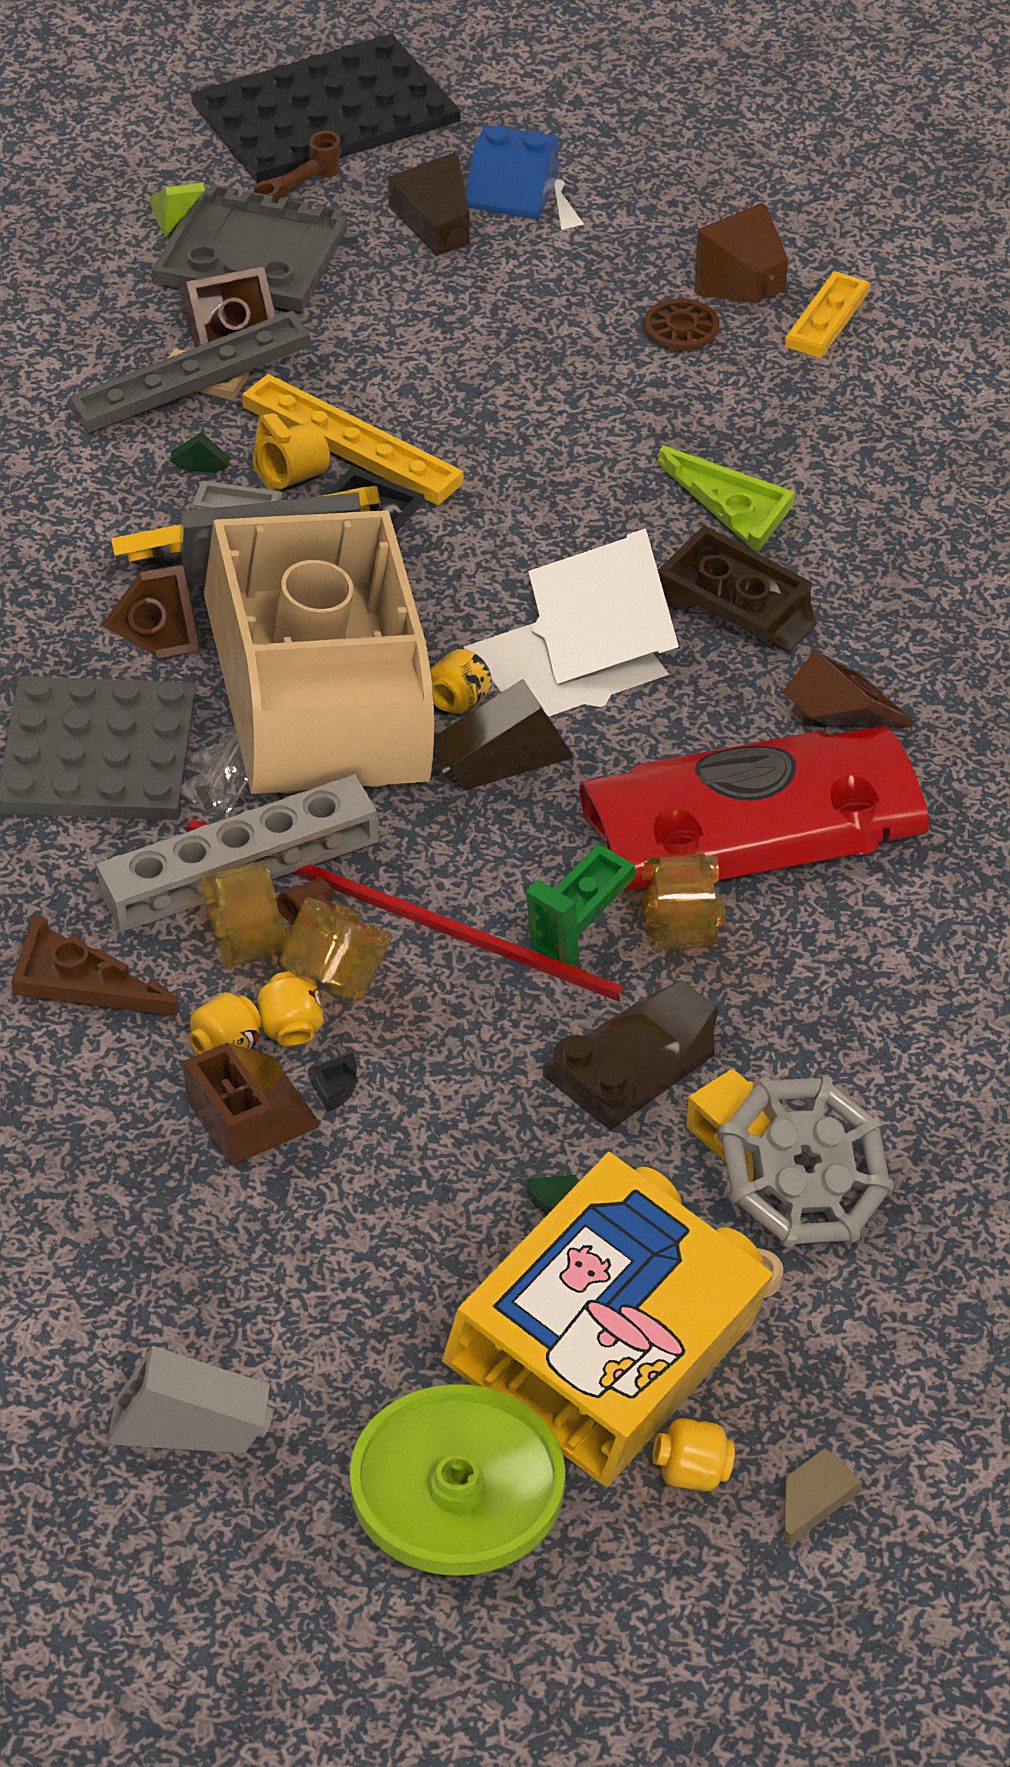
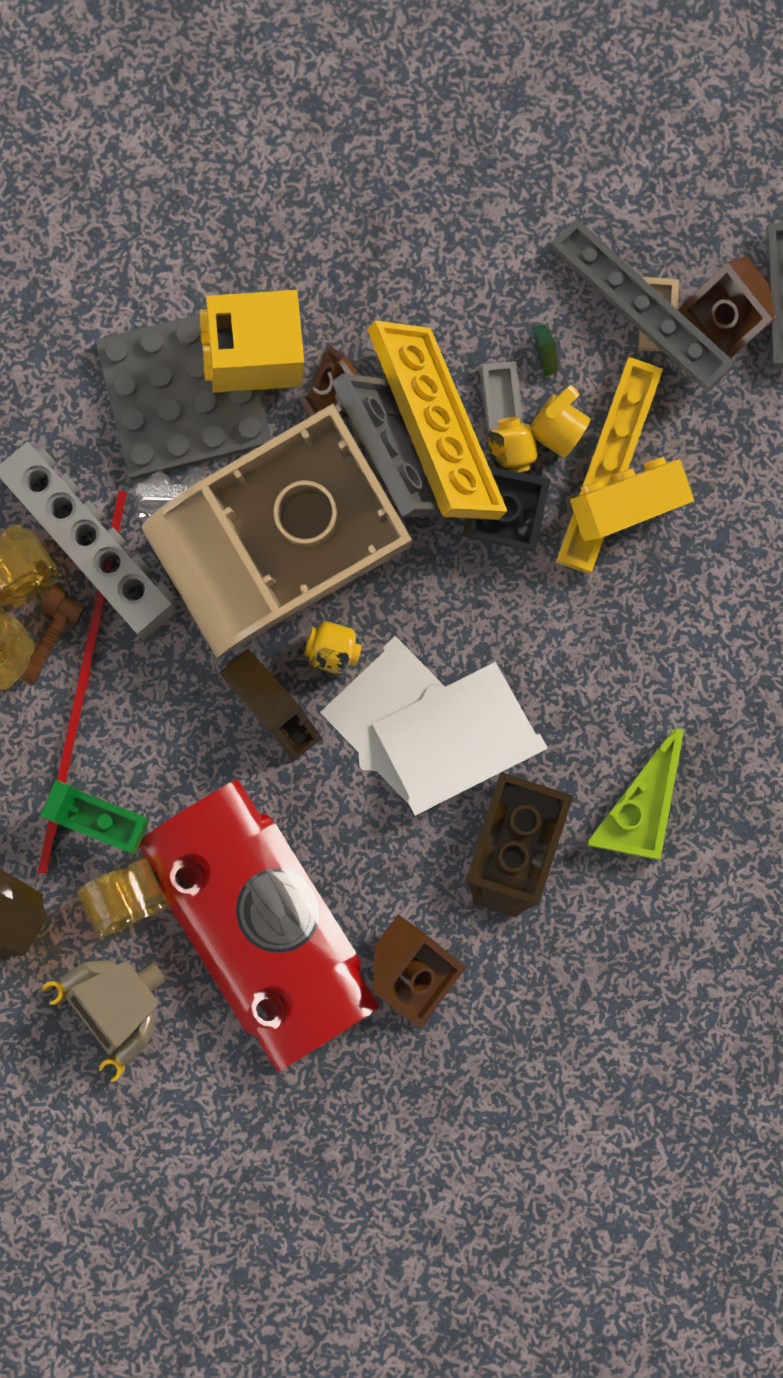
camera: 70 degrees right, 35 degrees up
(84, 634) = (264, 341): none -> yellow container
(294, 484) = (512, 445): none -> yellow head
(401, 415) = (631, 498): none -> yellow brick
(805, 944) = (113, 1006): none -> dark tan torso

